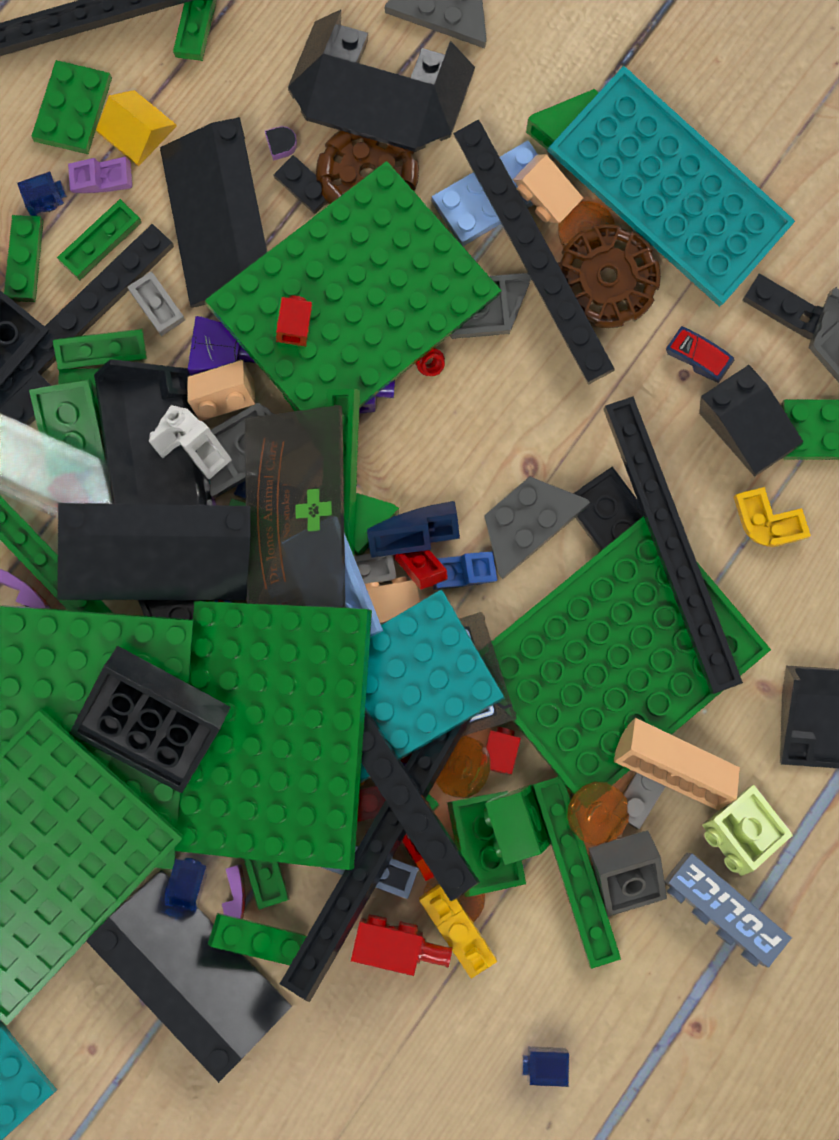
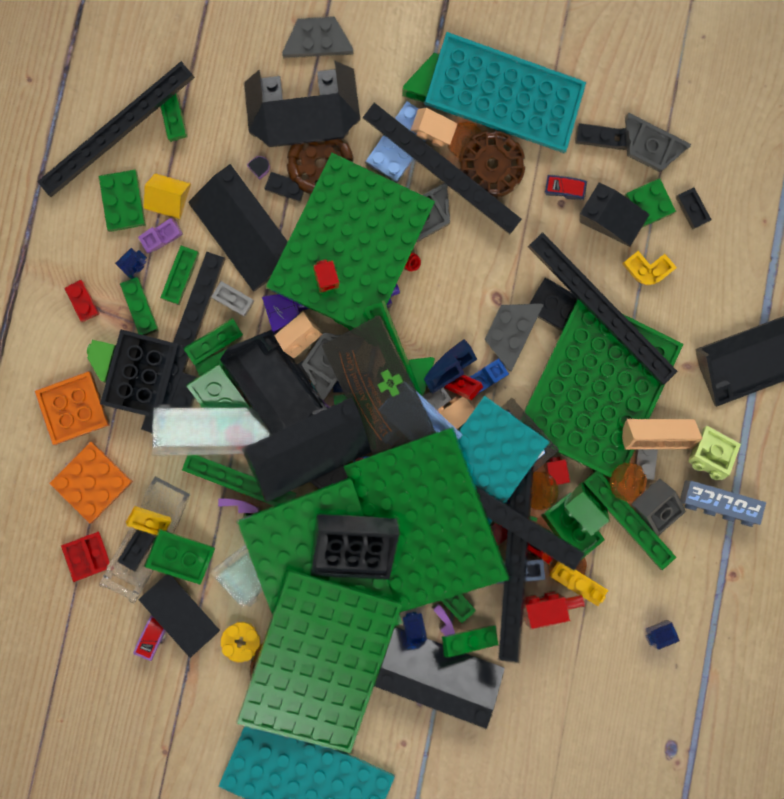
camera: 25 degrees left, 5 degrees up
(184, 429) = (302, 372): white tile -> none

